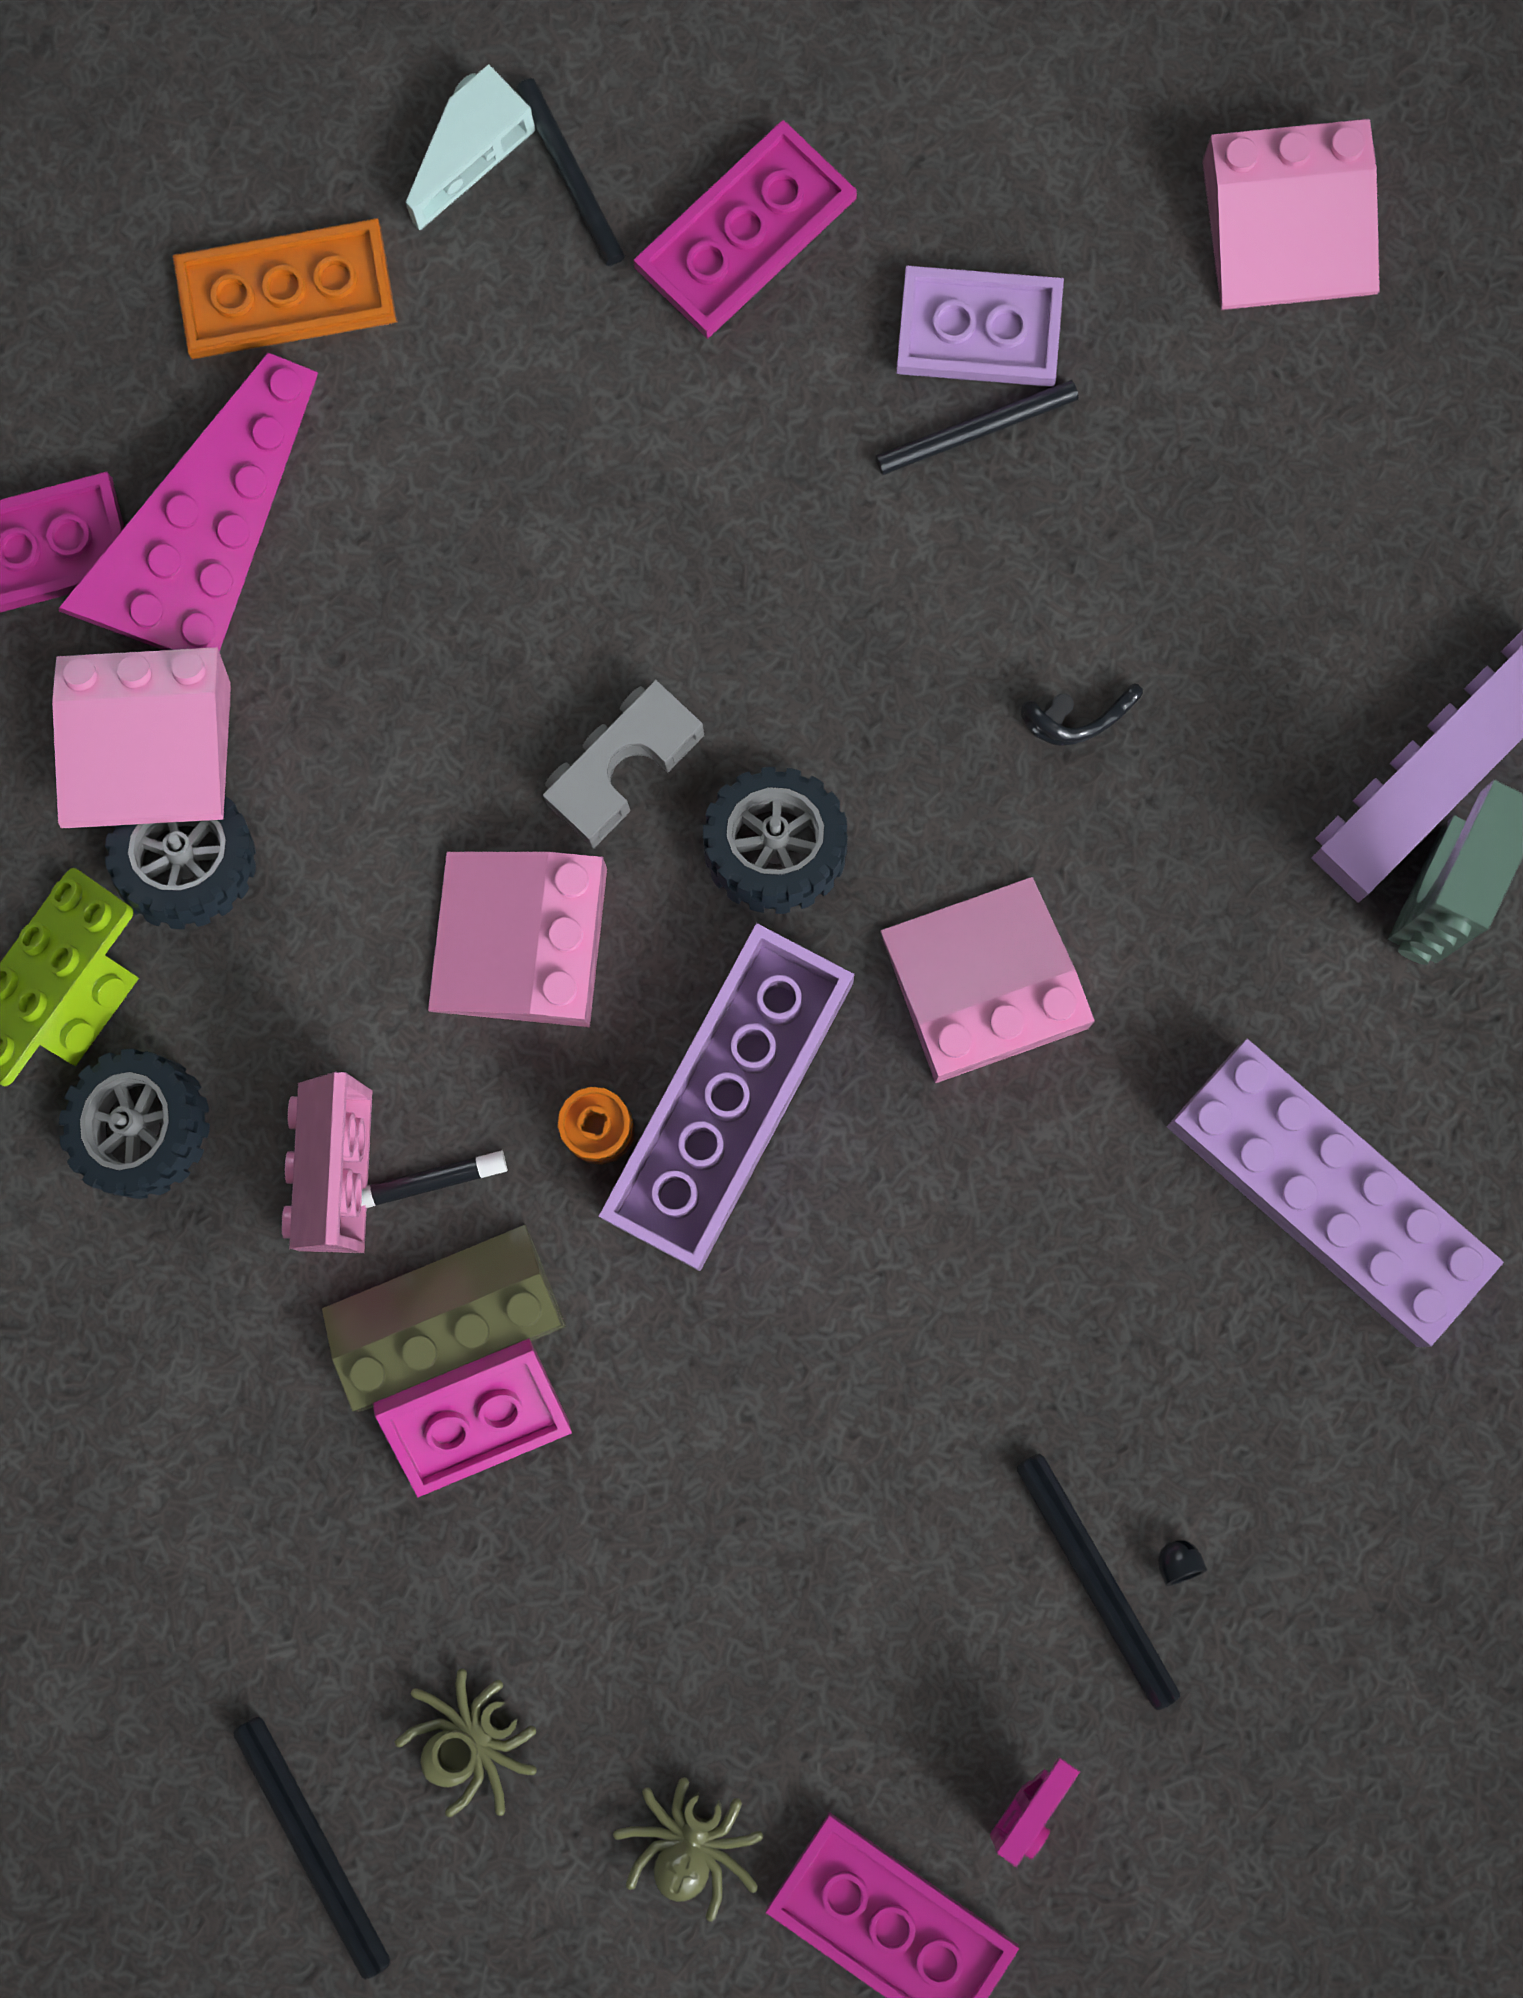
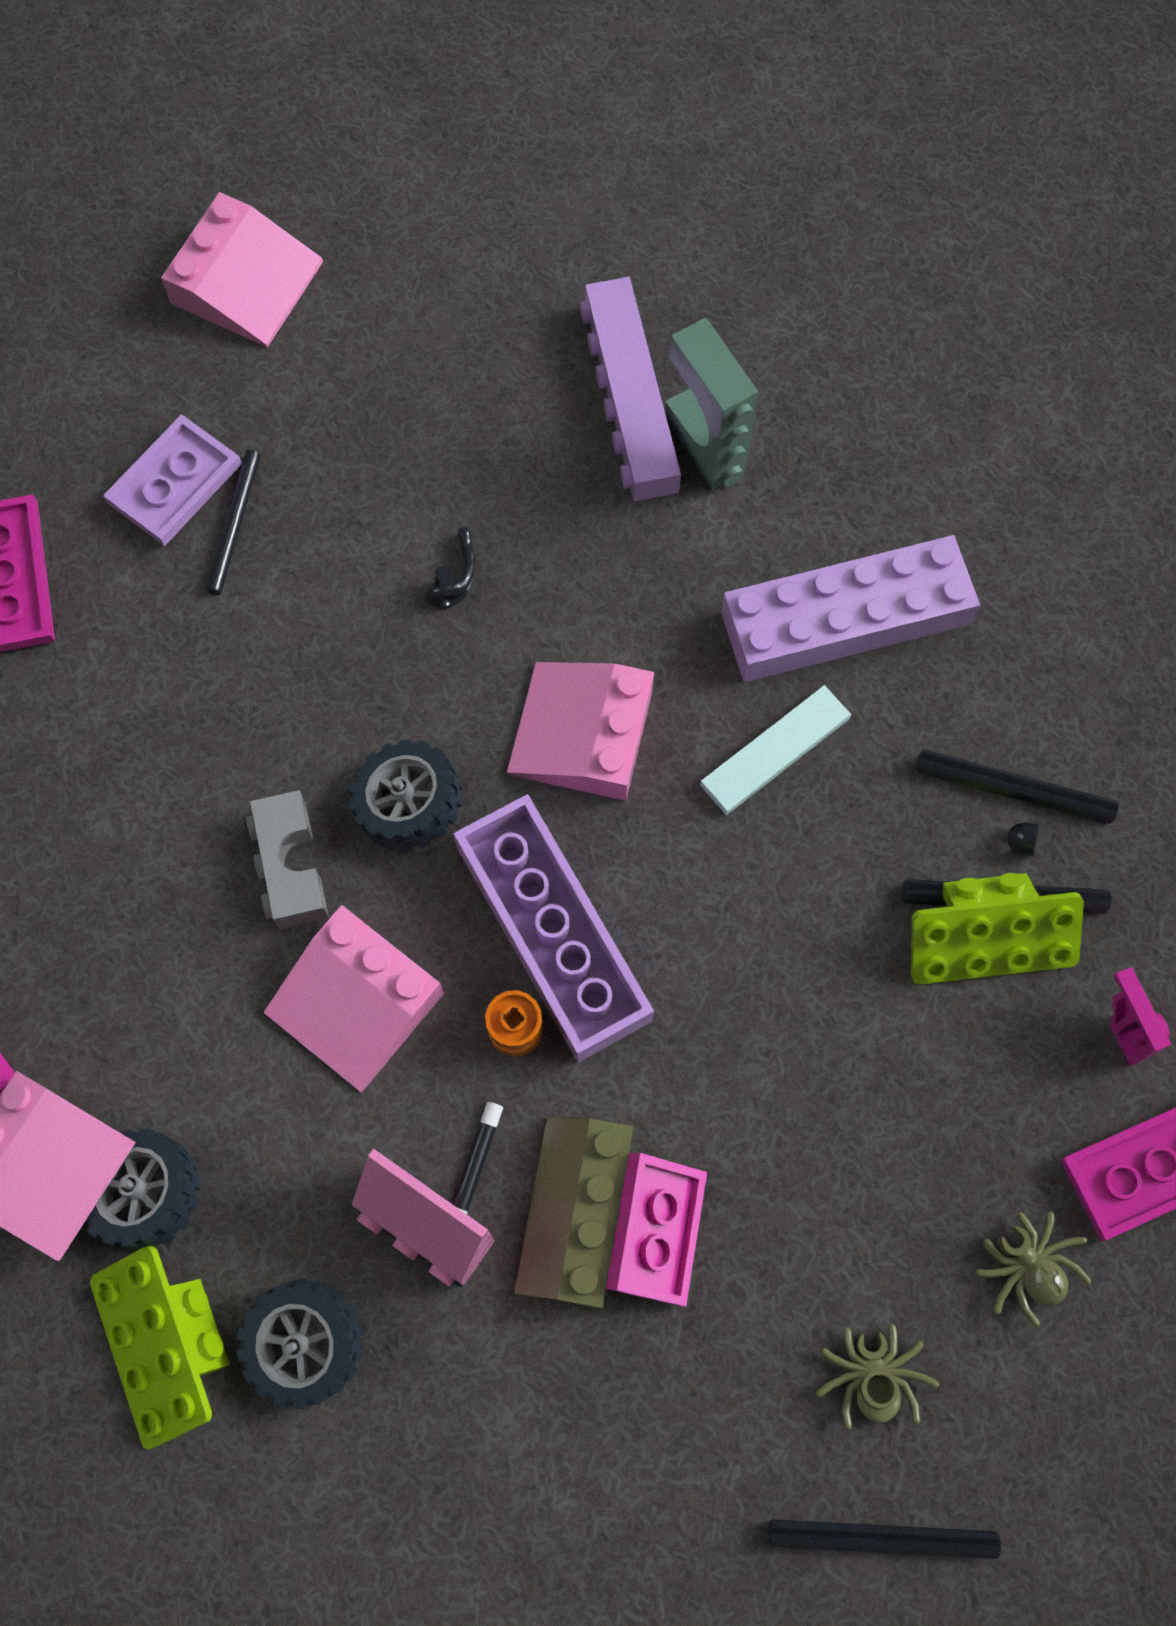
camera: 65 degrees left, 10 degrees down
(1043, 1589) = (995, 930): none -> lime bracket
(1105, 1214) = (775, 750): none -> light aqua tile
(1242, 1519) = (1017, 786): none -> black axle

